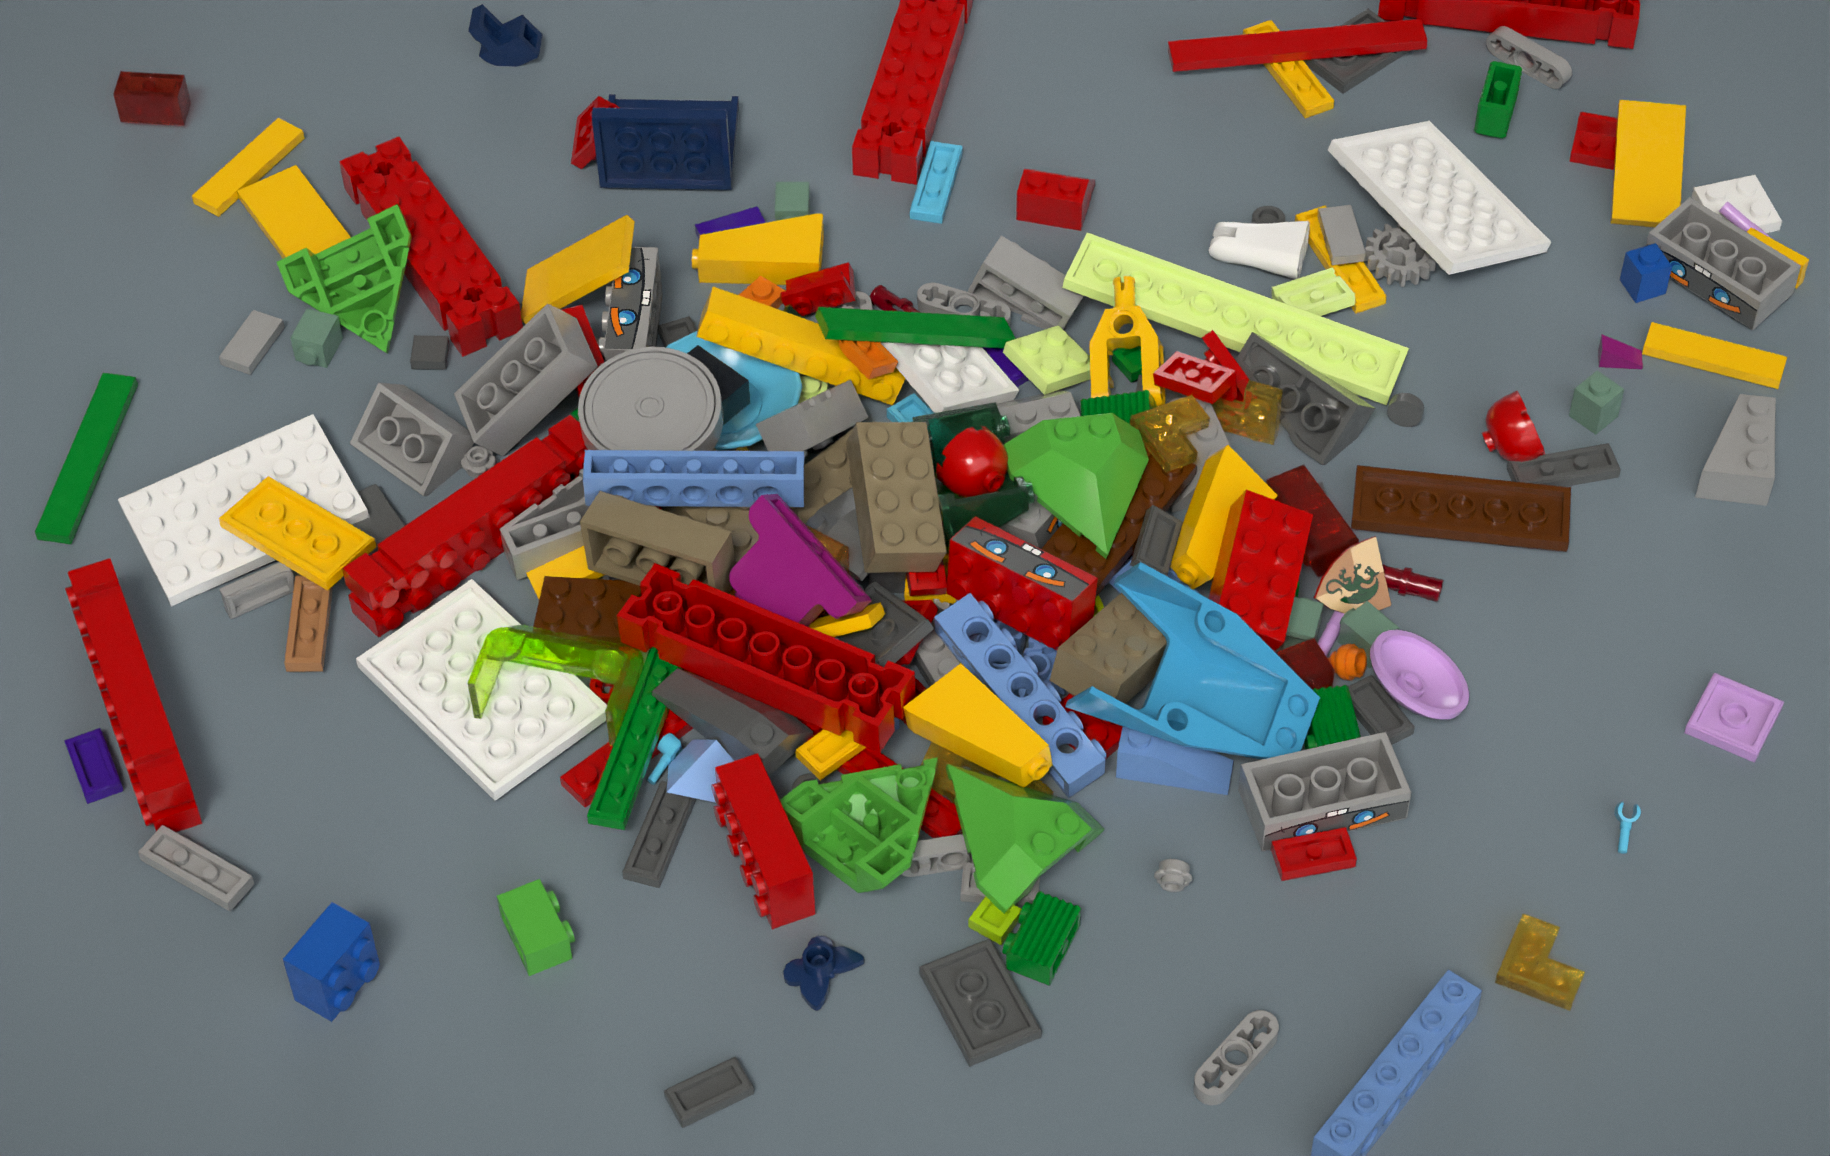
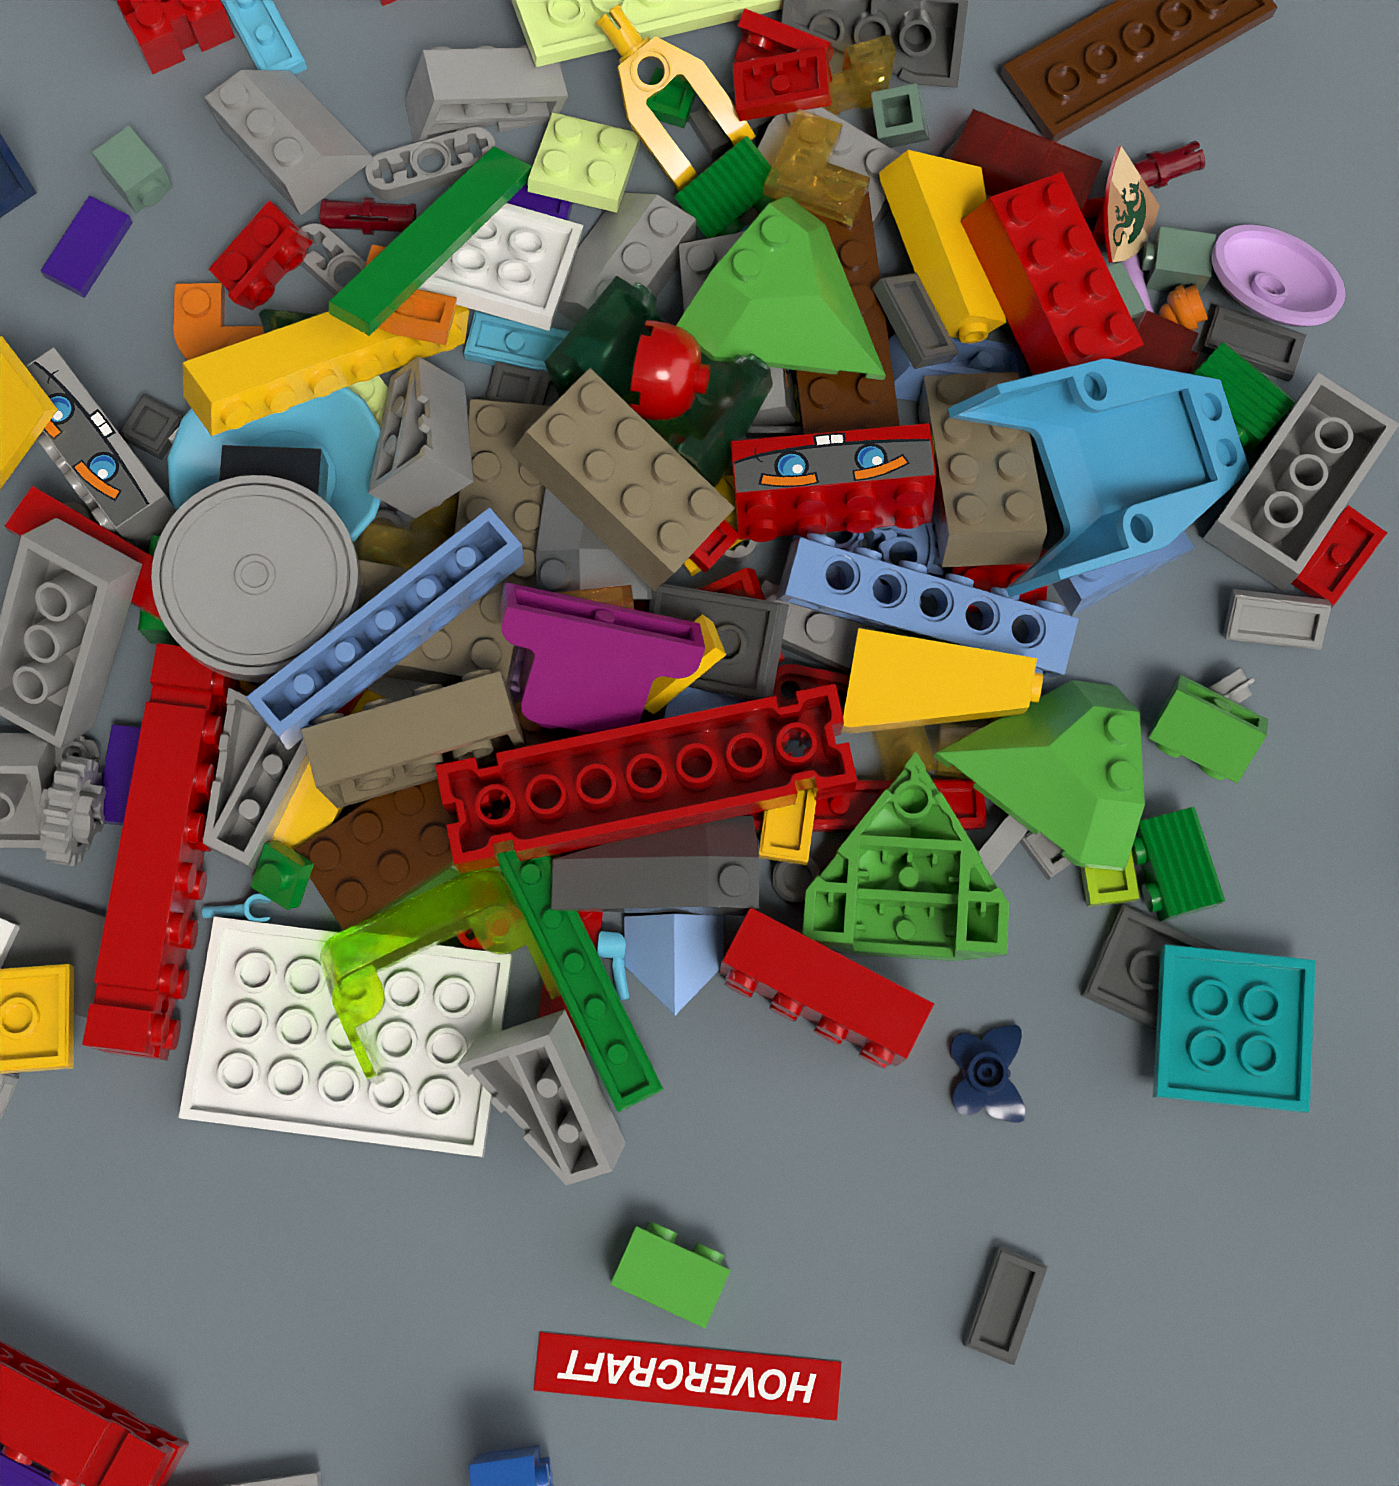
camera: 45 degrees left, 25 degrees up
(308, 626) = (85, 1122): medium nougat plate -> none
(448, 470) = (72, 811): none -> light grey gear
(495, 590) = (237, 911): none -> medium azure hand
(495, 994) = (688, 1376): none -> red sticker
(527, 583) = (282, 875): none -> green plate
(560, 779) = (551, 1093): none -> light grey wedge
(658, 837) = (692, 1062): dark grey tile -> none
(768, 249) = (162, 243): yellow slope -> none
(893, 240) = (287, 134): none -> light grey slope
(987, 1040) = (1234, 1029): none -> teal plate
(1132, 878) = (1208, 730): none -> bright green brick
(1239, 858) = (1276, 619): none -> light grey tile
(1262, 447) = (900, 115): none -> sand green brick

